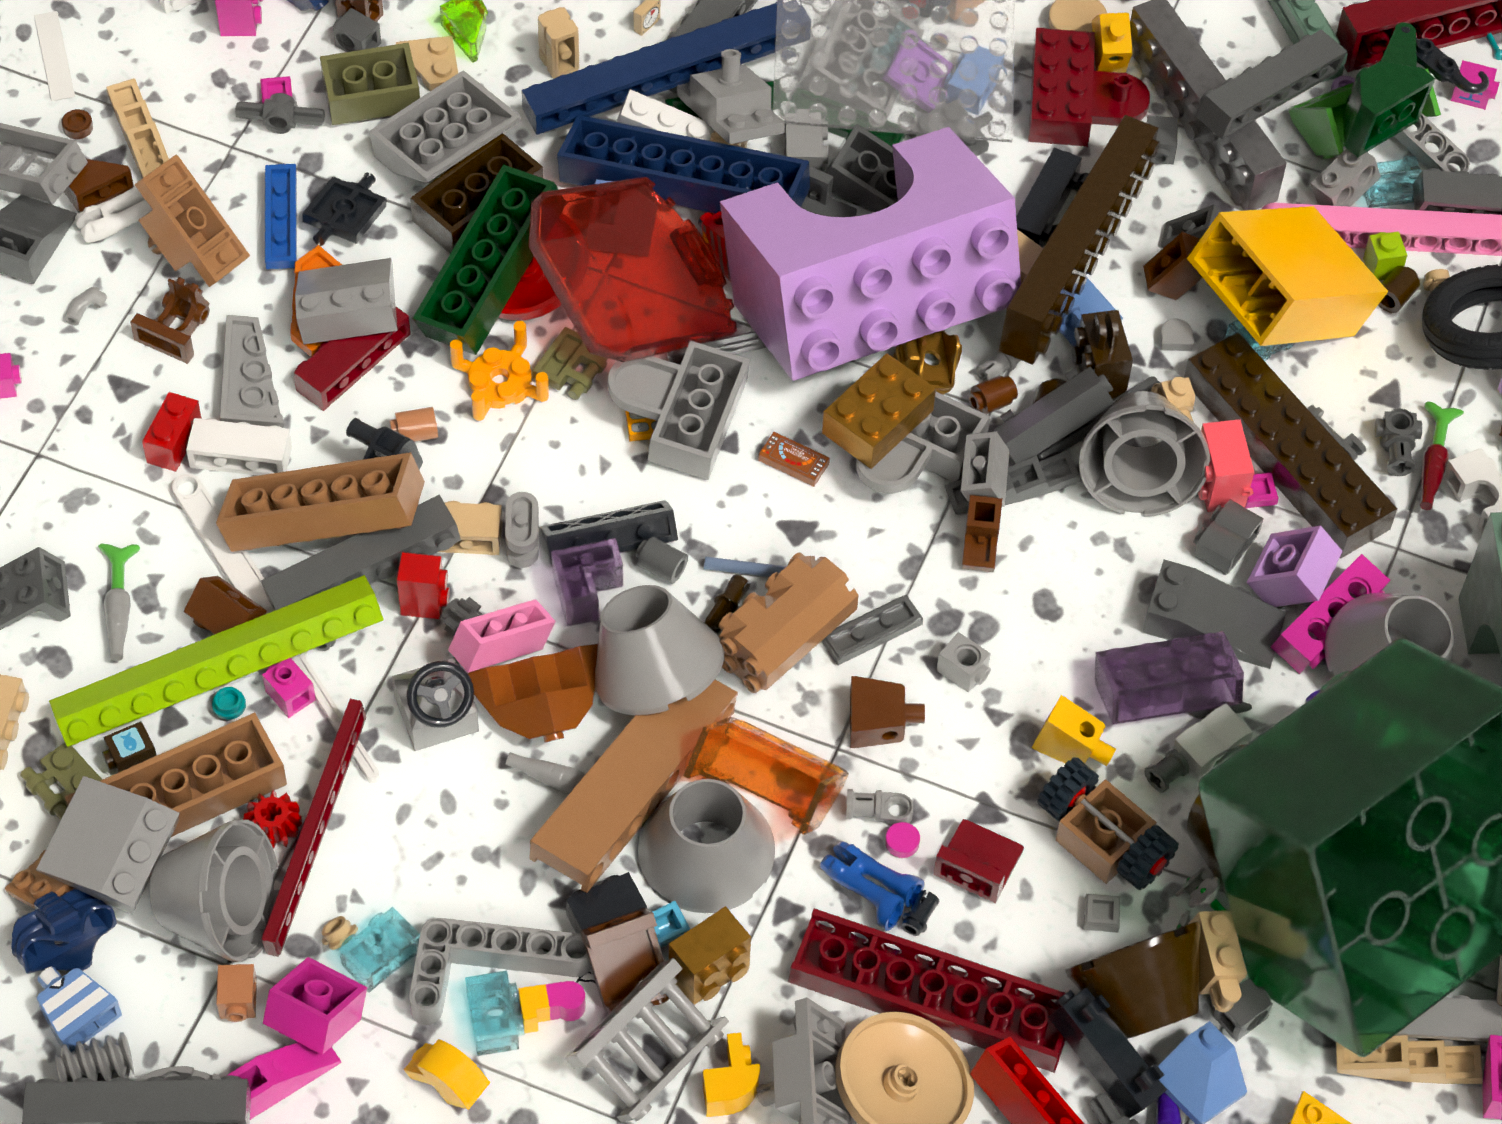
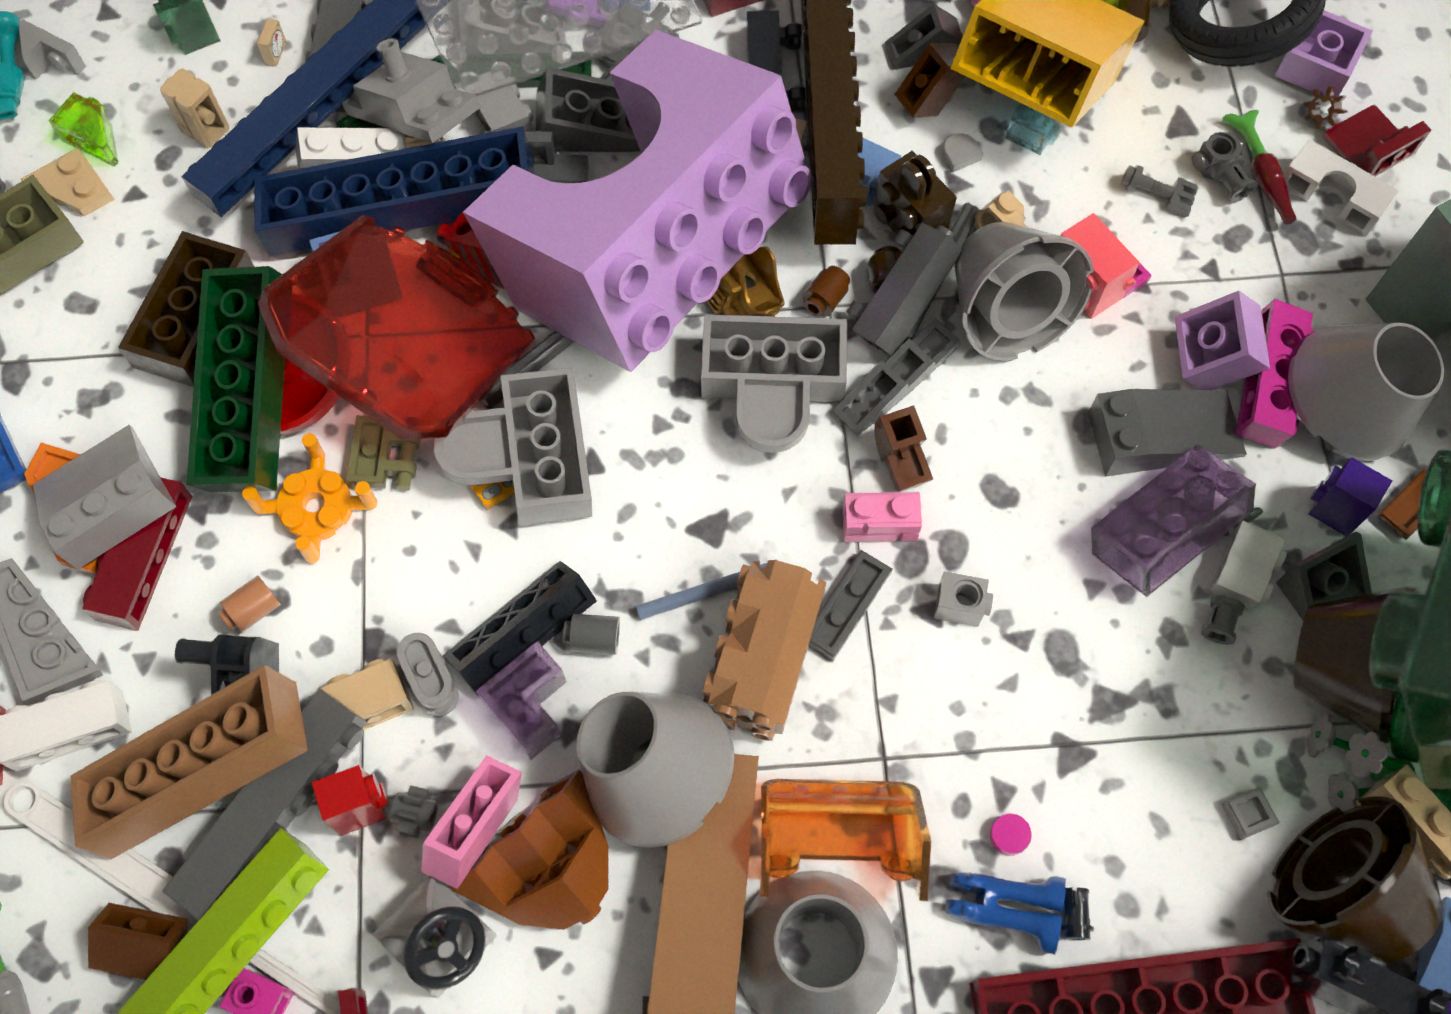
camera: 25 degrees left, 10 degrees up
(344, 209) = (51, 389): black plate -> none
(441, 128) = (114, 254): light grey slope -> none
(553, 774) = (613, 952): light grey piece -> none
(727, 601) = (686, 651): dark brown axle -> none
(793, 459) = (666, 452): dark orange tile -> none
(877, 806) = (967, 811): light grey connector -> none
(878, 410) = (739, 366): pearl gold brick -> none
(880, 712) = (909, 699): reddish brown torso -> none
(935, 576) = (881, 517): none -> bright pink brick
(978, 860) = (1102, 819): dark red bracket -> none
(985, 466) = (875, 378): light grey brick -> none
(996, 366) = (811, 259): light grey pin -> none
(1072, 734) = (1116, 631): yellow torso -> none
(1105, 827) = (1218, 722): brick -> none
(1227, 536) = (1131, 337): dark grey brick -> none
(1291, 444) = (1150, 219): dark brown brick -> none

